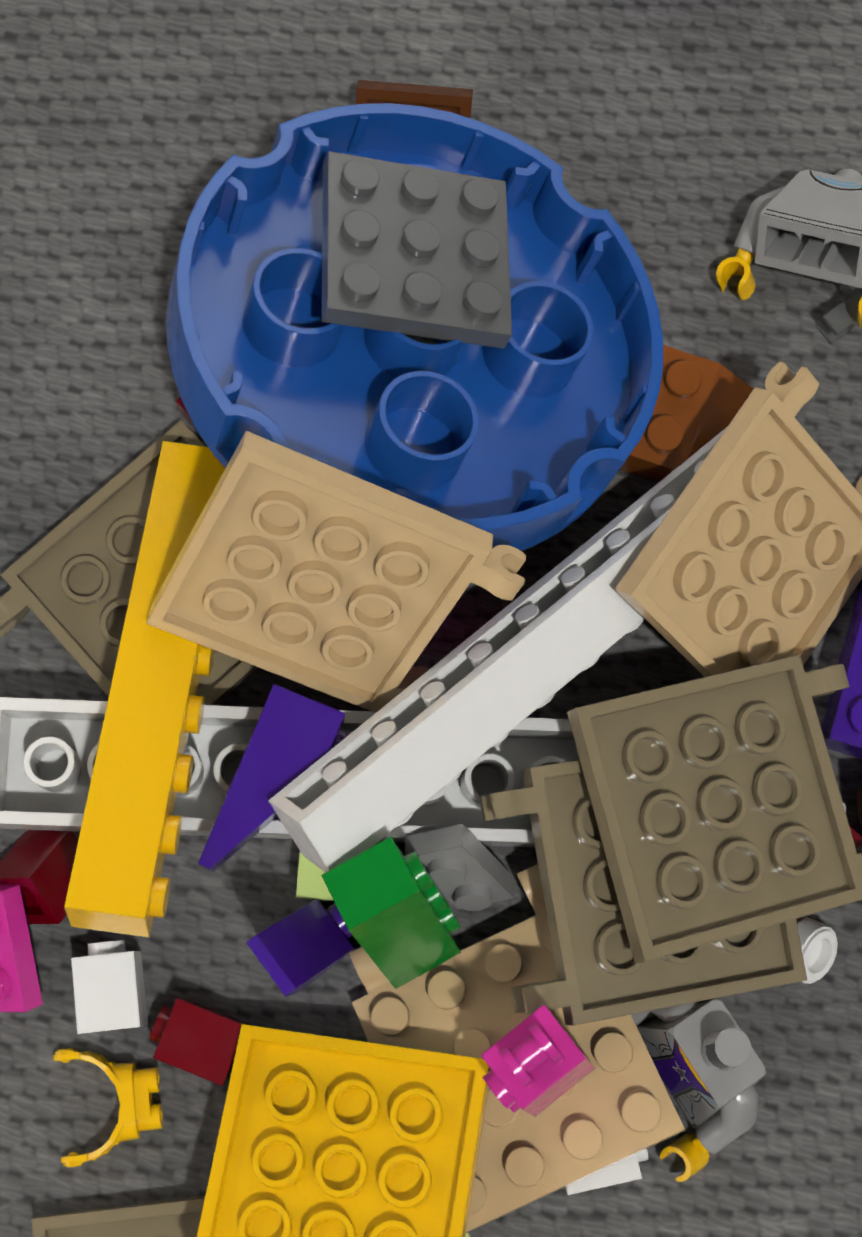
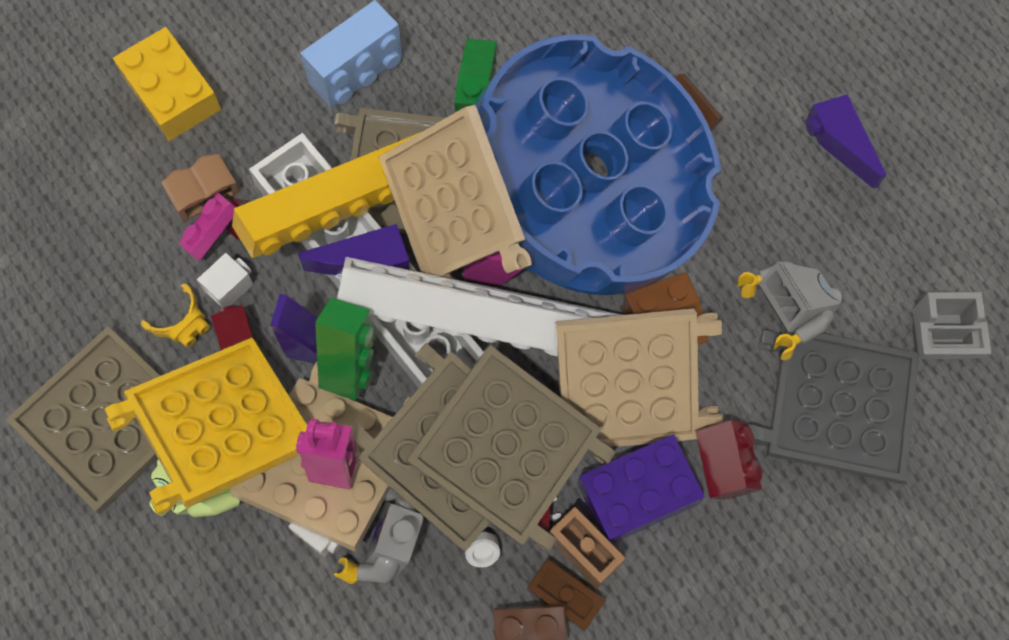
camera: 50 degrees right, 10 degrees down
(99, 369) = (474, 71): none -> green slope
(415, 251) = (623, 132): dark grey plate -> none
(462, 867) = (390, 369): light grey plate -> none

